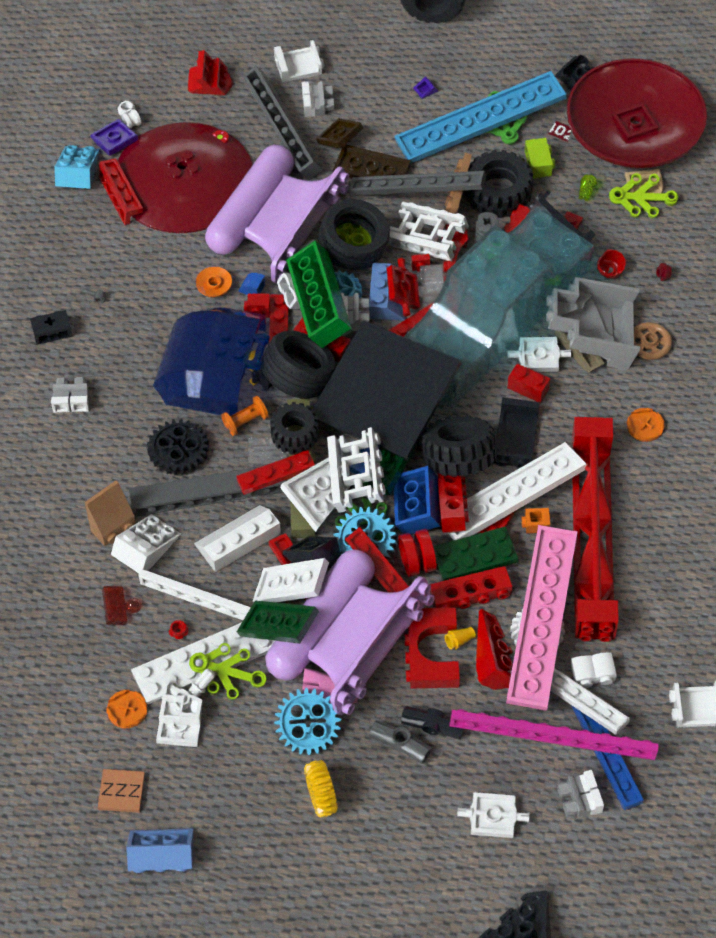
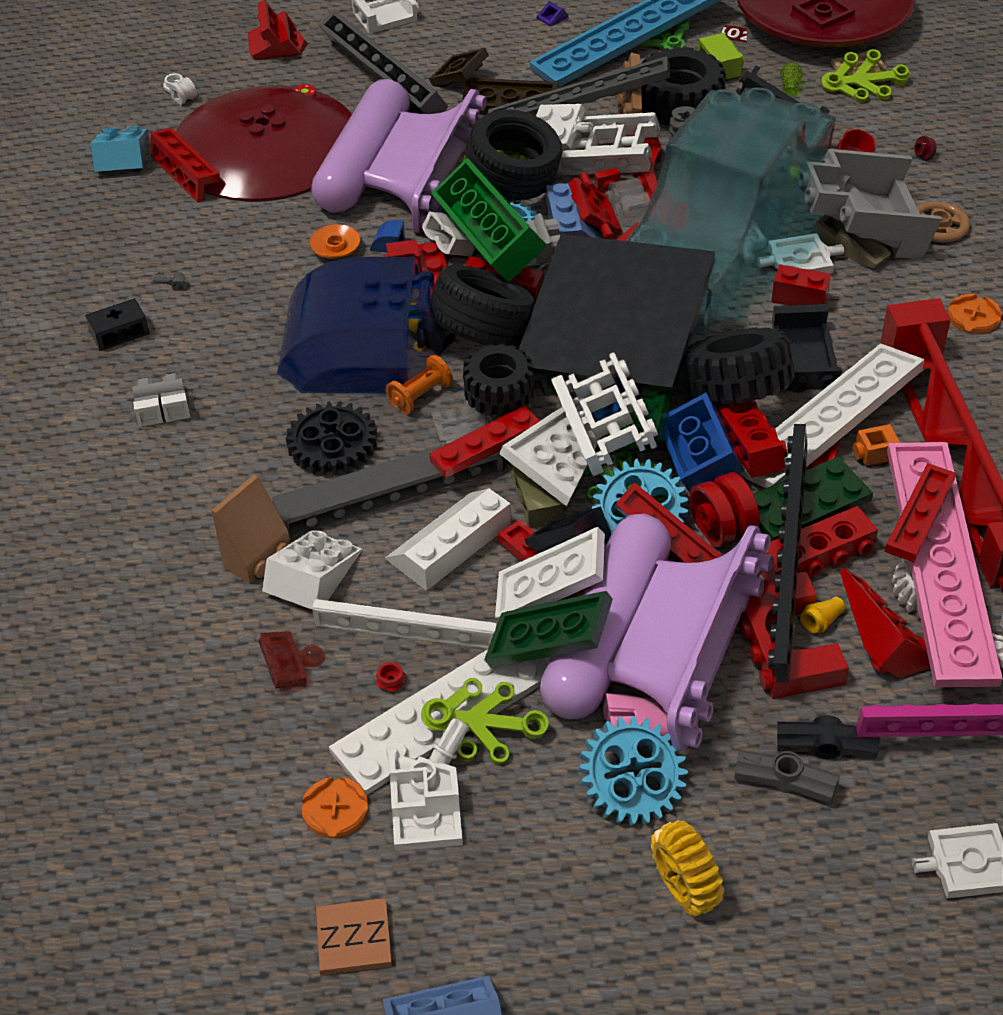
camera: 10 degrees left, 10 degrees down
(114, 137) = (164, 112): dark purple tile -> none
(314, 99) = (419, 41): light grey hips -> none
(396, 208) = (566, 121): none -> white plate
(444, 597) = (788, 557): none -> black plate
(537, 582) = (920, 512): none -> red plate

